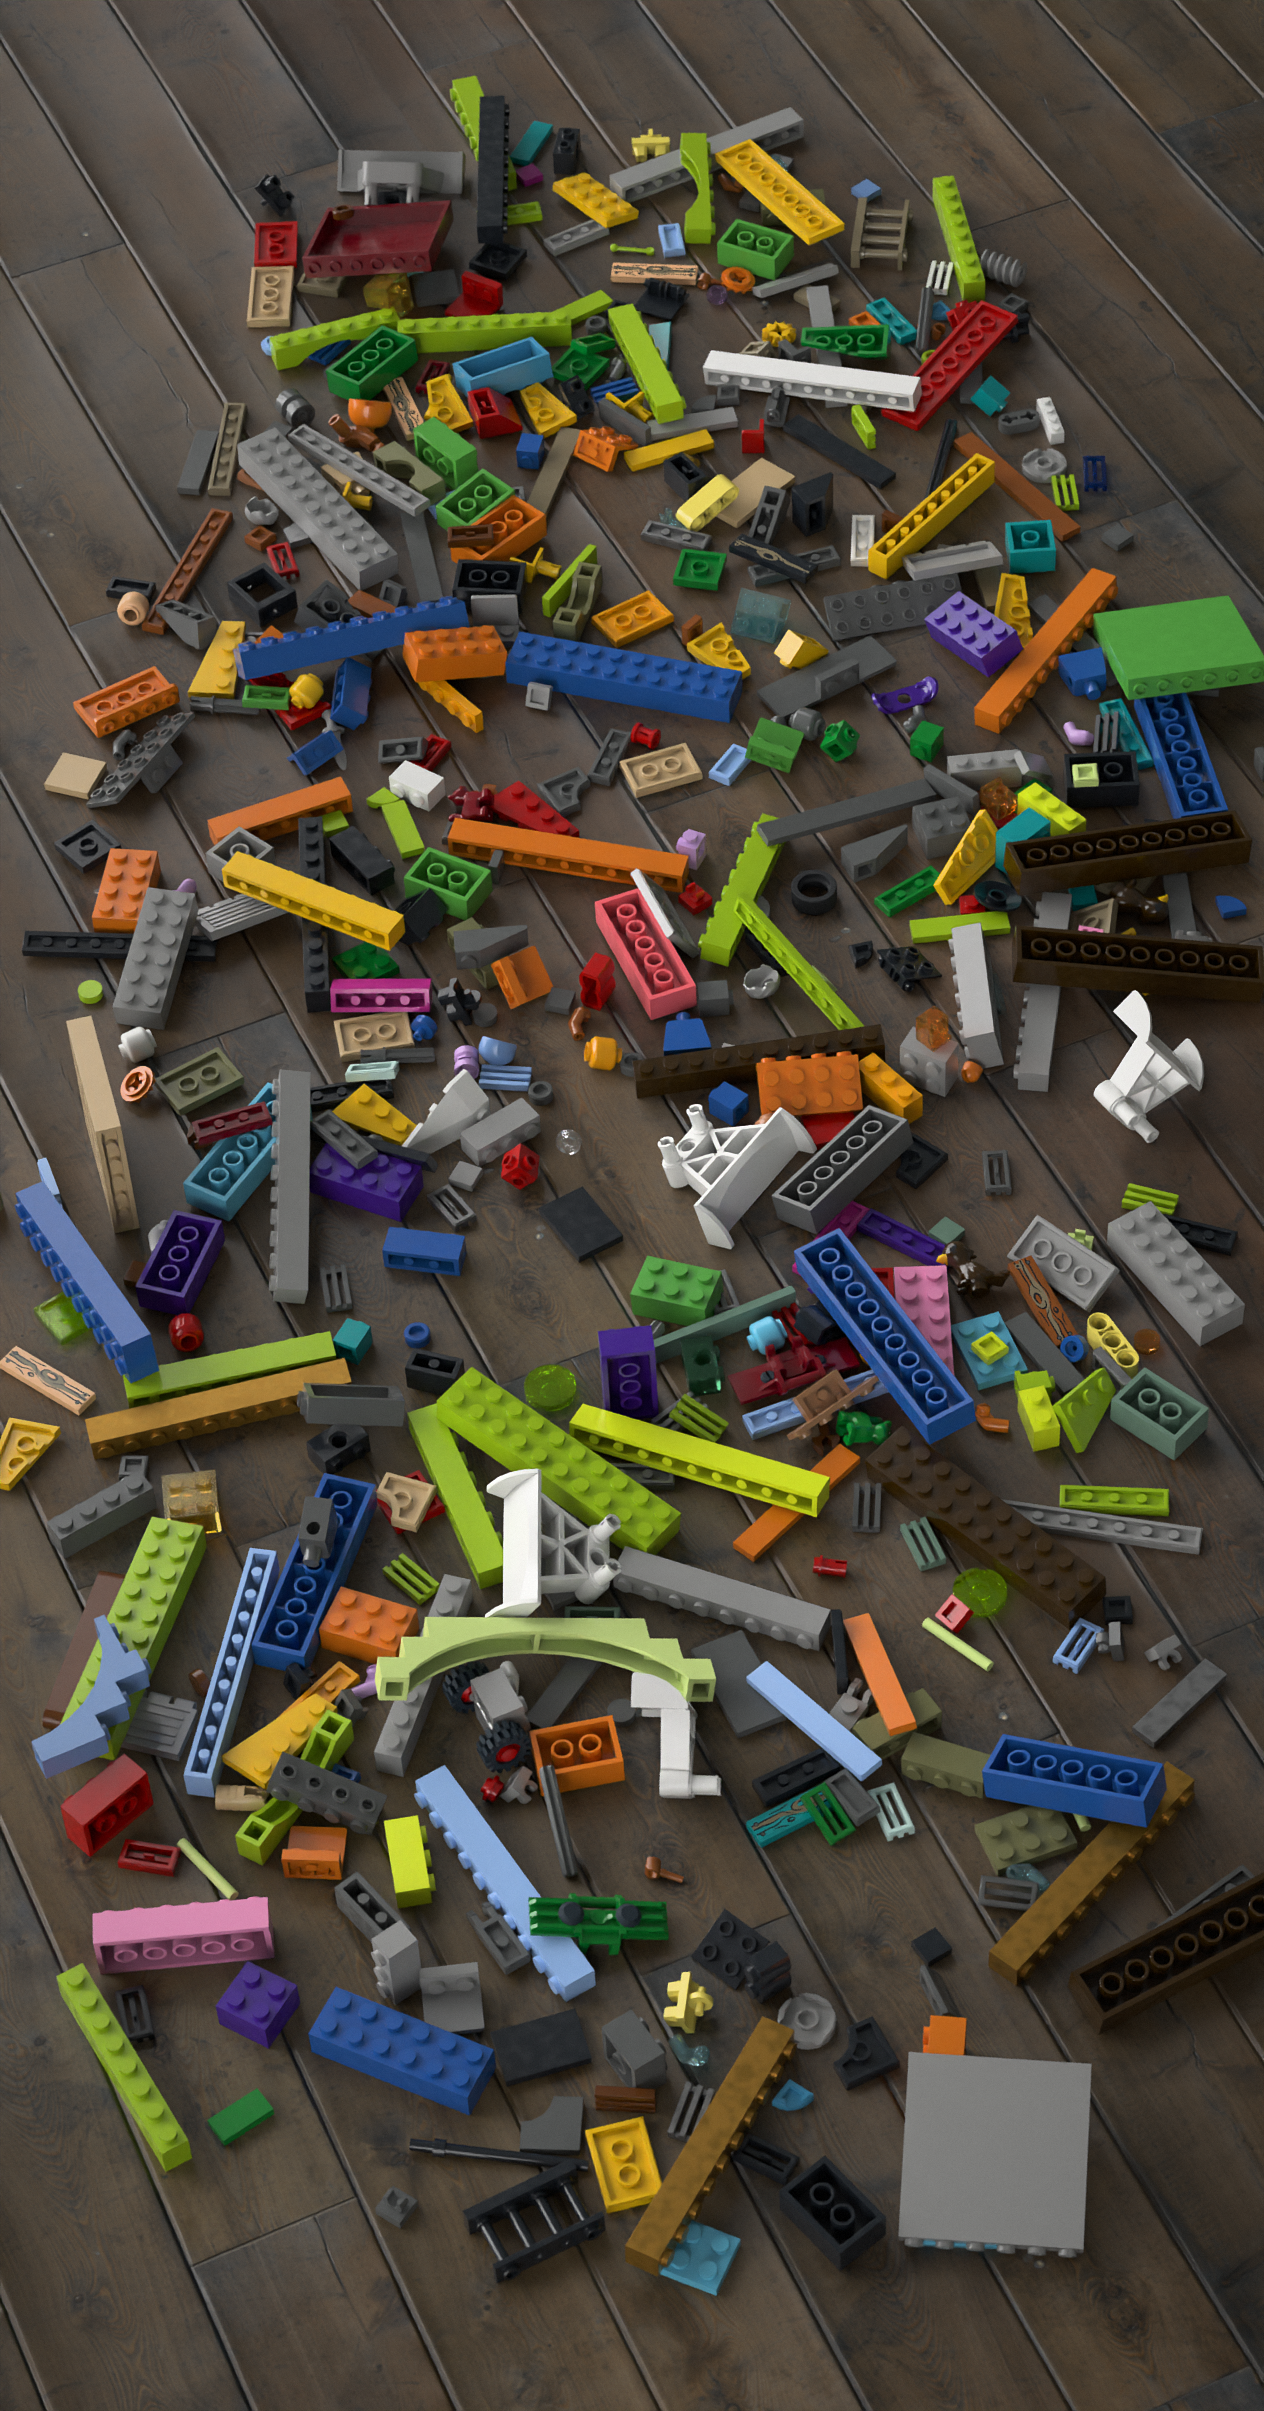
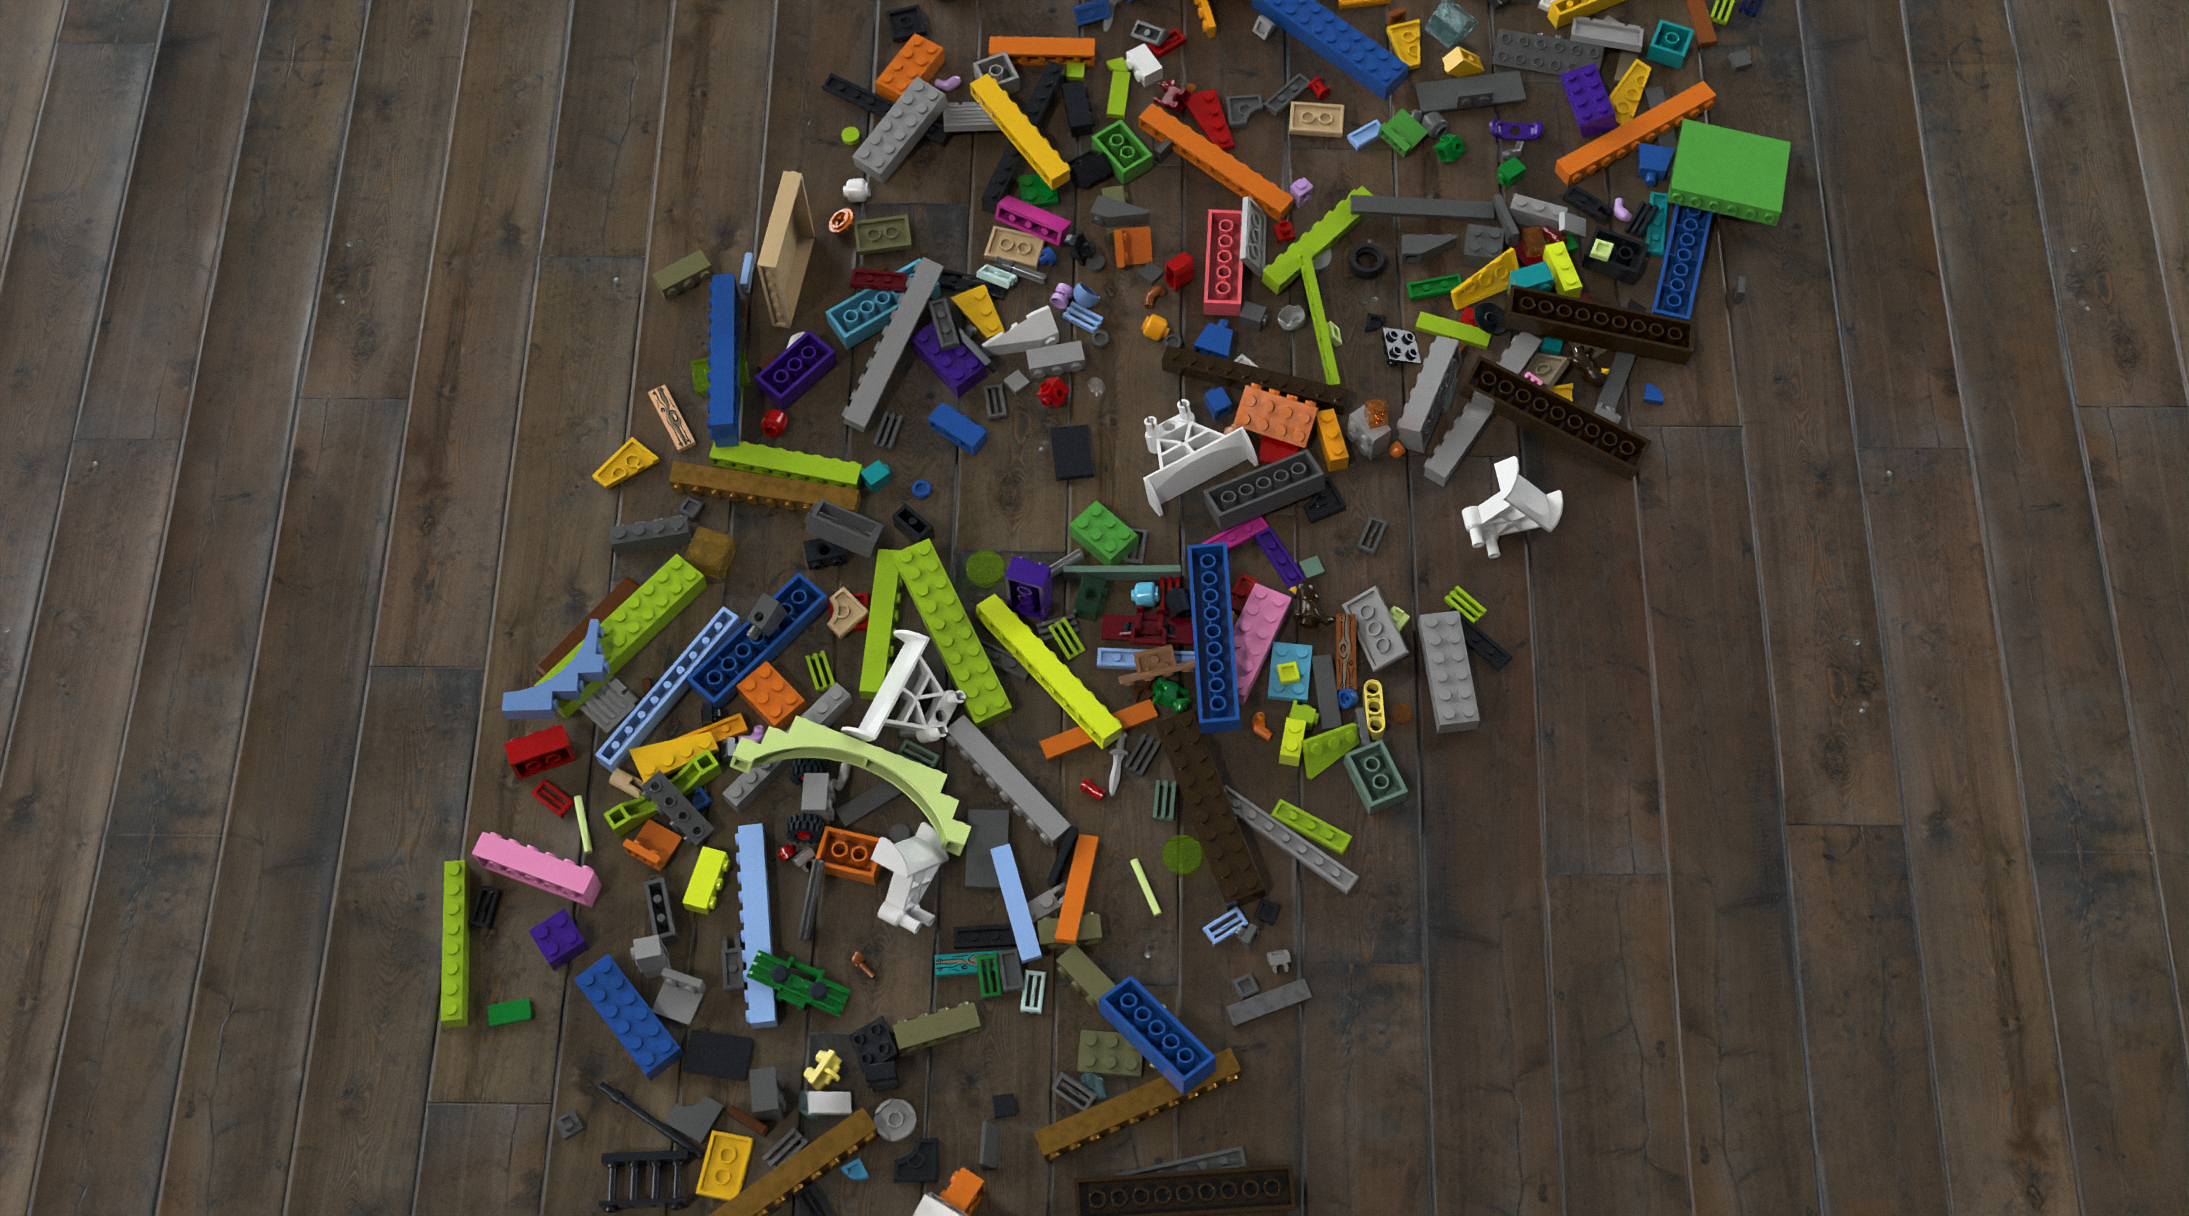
camera: 25 degrees right, 15 degrees up
(716, 2034) = (829, 1103): none -> white tile
(800, 1895) = (937, 1027): none -> olive brick
(838, 1520) = (1118, 755): none -> light grey sword
(954, 1613) = (1154, 864): plate -> none
(1018, 784) = (1553, 235): none -> clear red cone
(1036, 741) = (1588, 204): none -> black hinge
(1141, 1698) = (1245, 986): none -> dark grey tile

